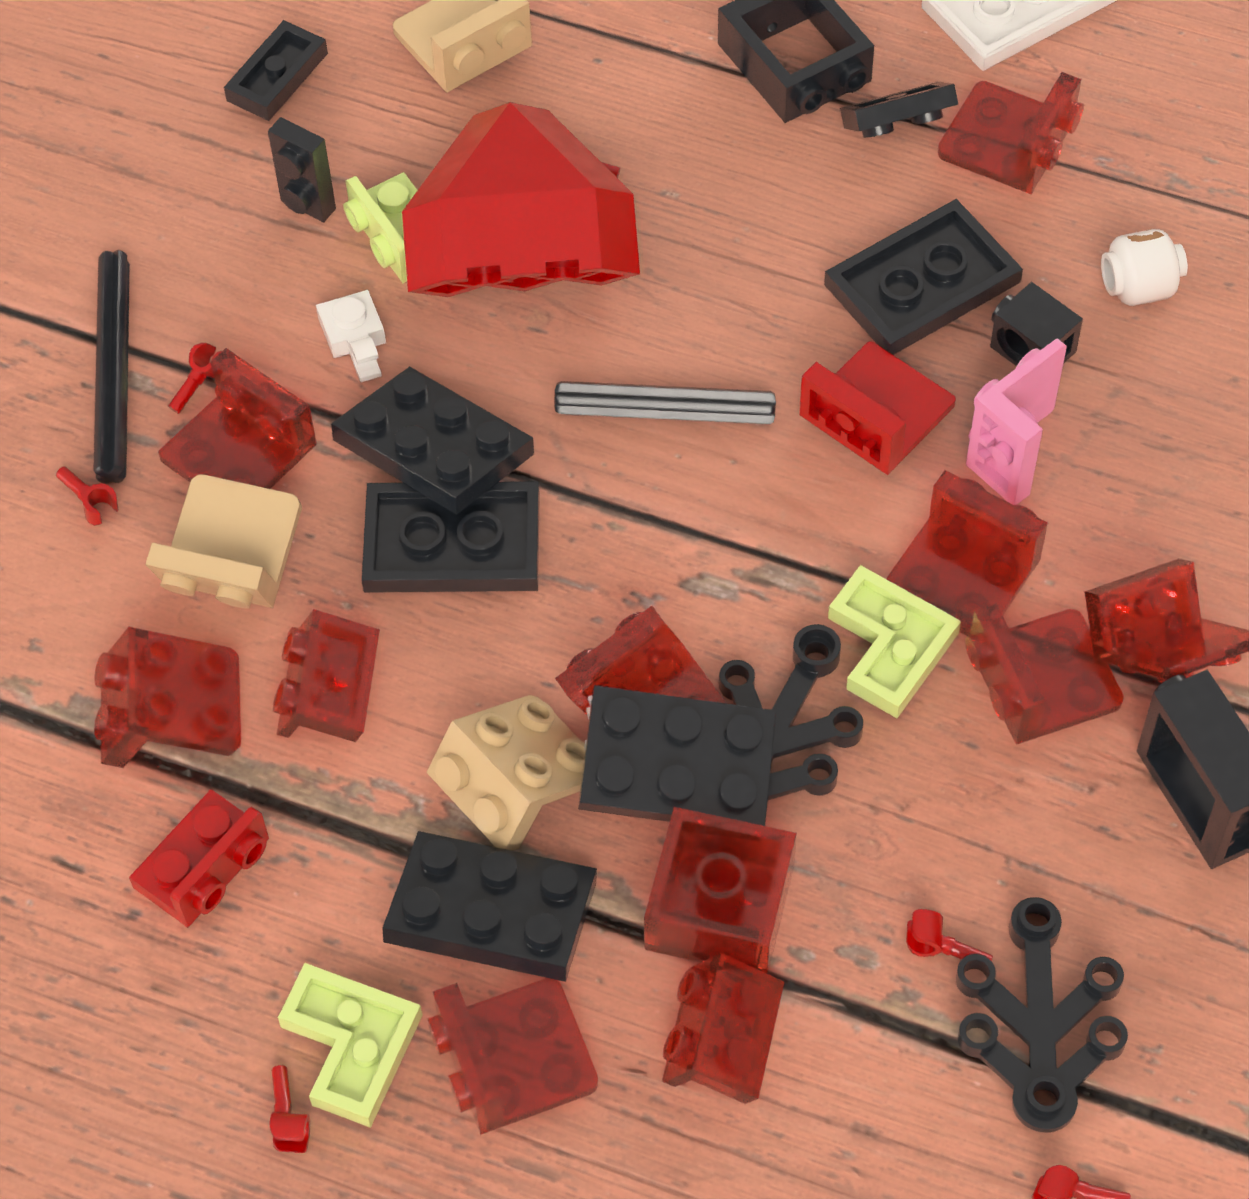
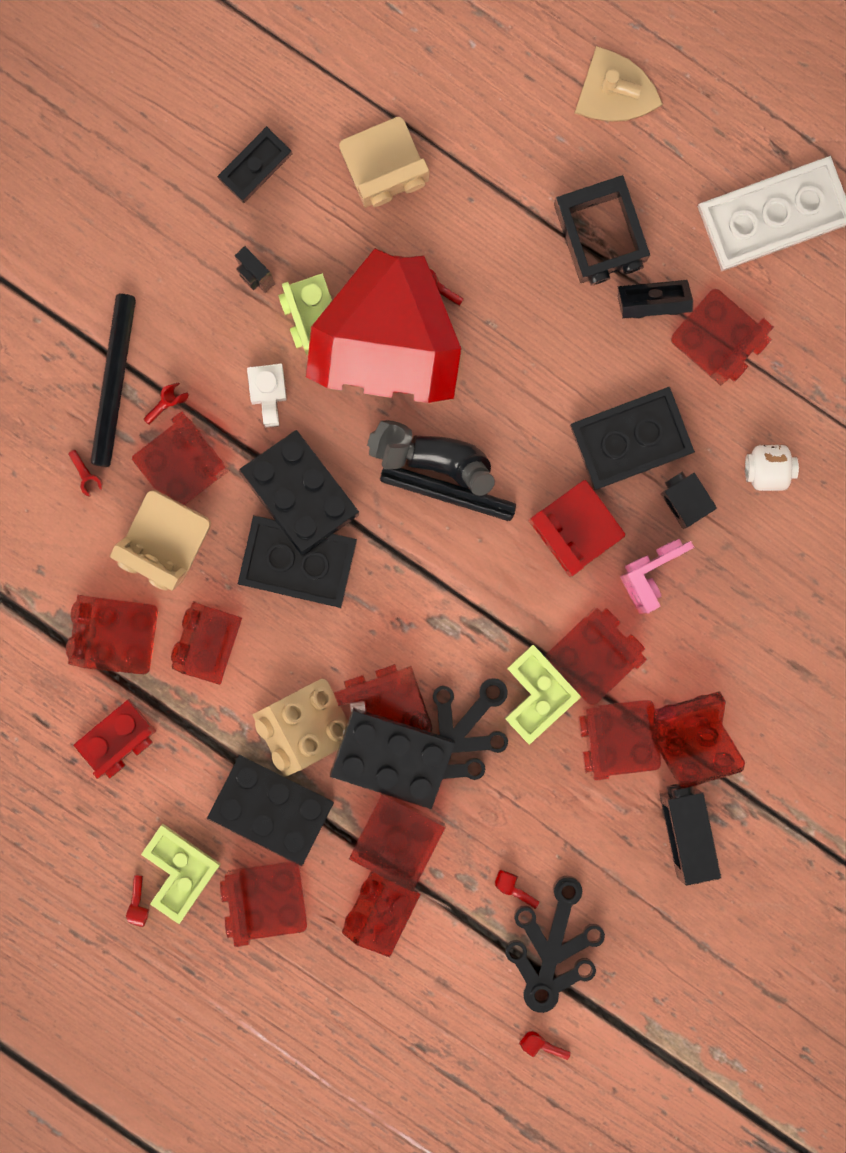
camera: 10 degrees right, 30 degrees up
(625, 350) = (443, 455): none -> piece

